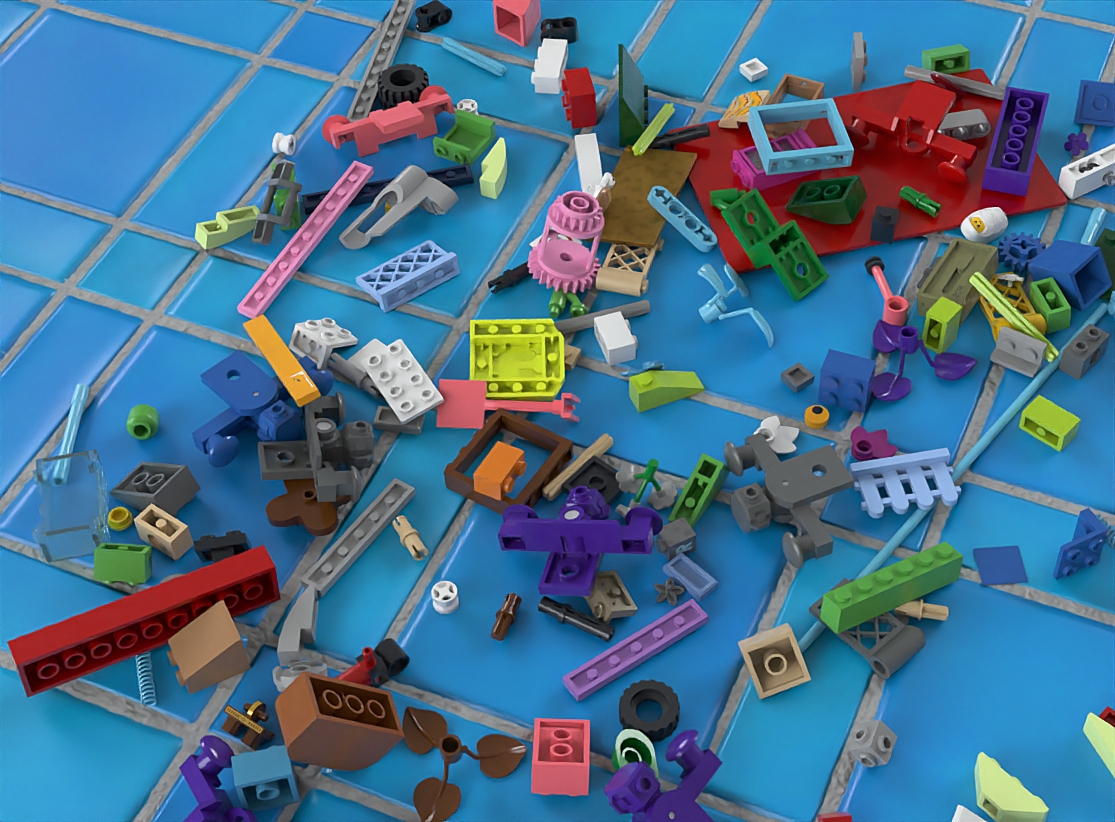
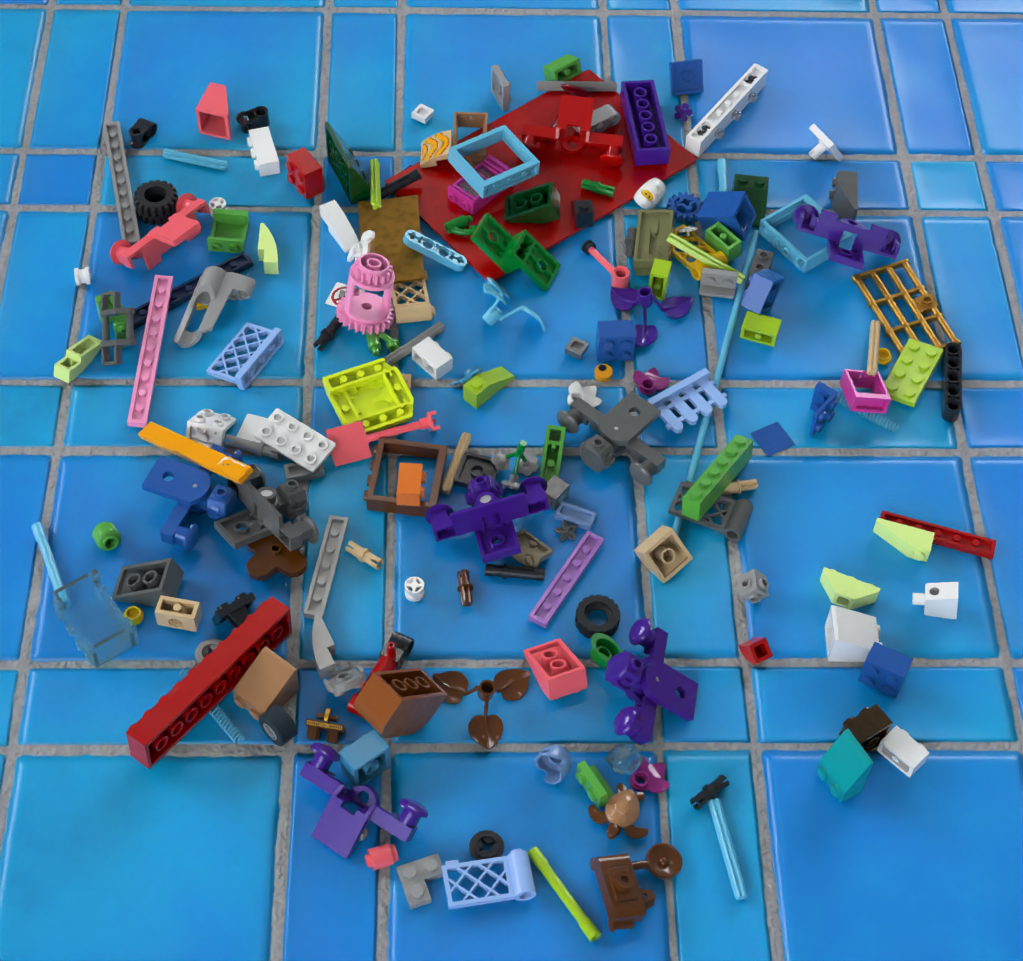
camera: 30 degrees left, 5 degrees up
(123, 563) = (161, 647): bright green brick -> none
(193, 700) = (278, 725): none -> black wheel
(1069, 375) = (762, 291): none -> brick

